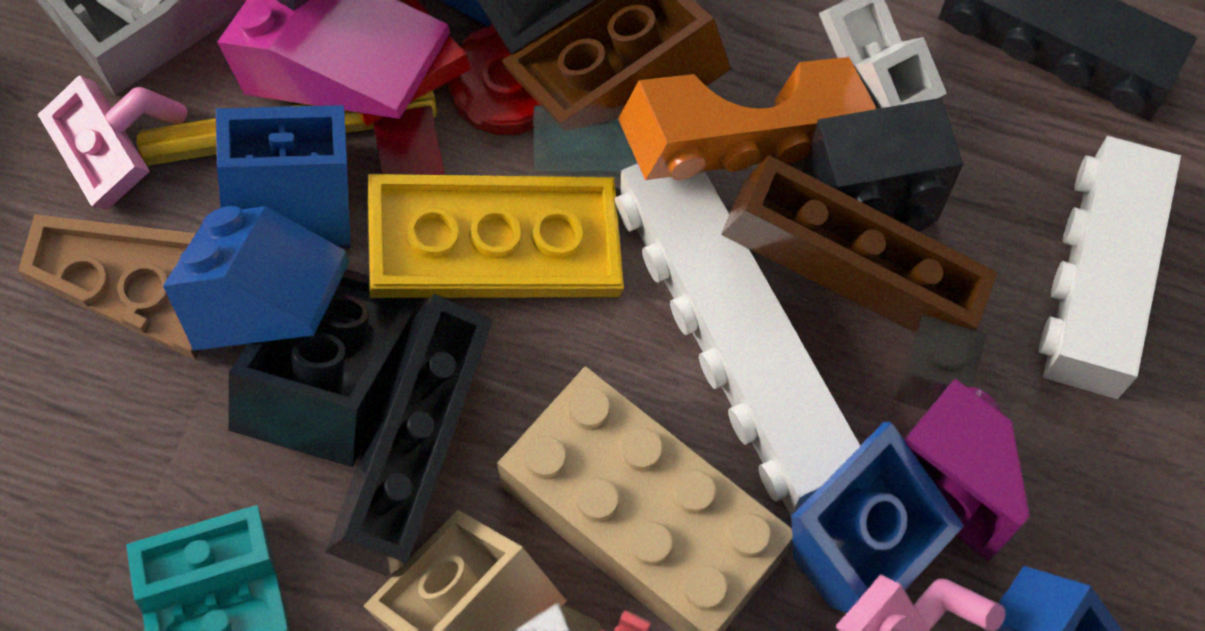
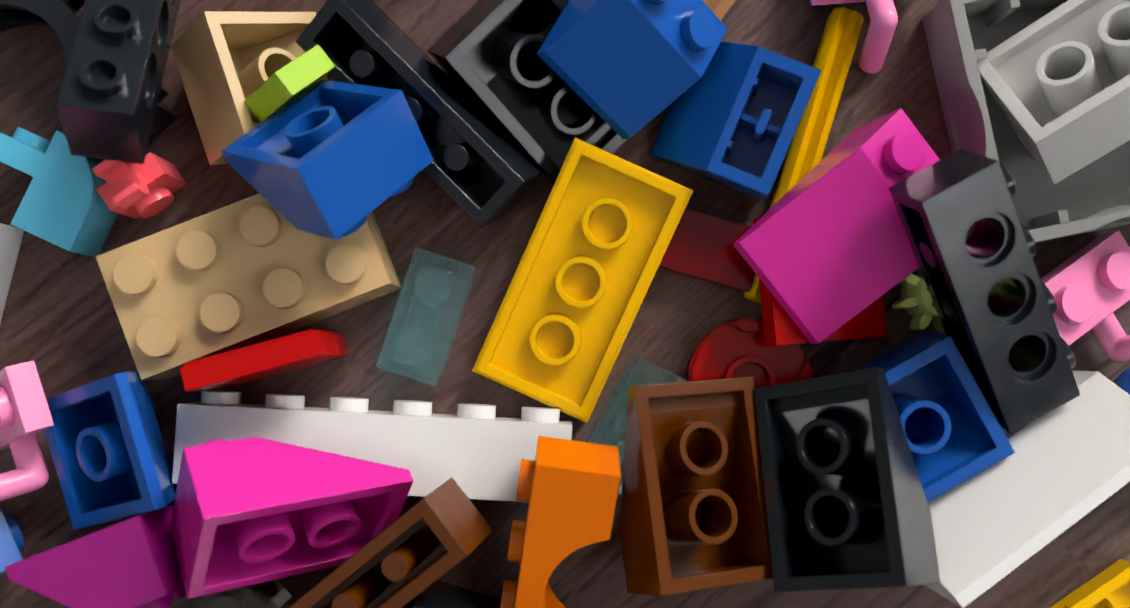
camera: 115 degrees right, 20 degrees up
(451, 539) = (289, 83): none -> lime tile
(497, 455) = (332, 155): none -> blue slope
(613, 347) = (426, 317): none -> clear light blue plate
(713, 431) = (263, 360): none -> red tile
(838, 352) = (275, 511): none -> dark pink slope

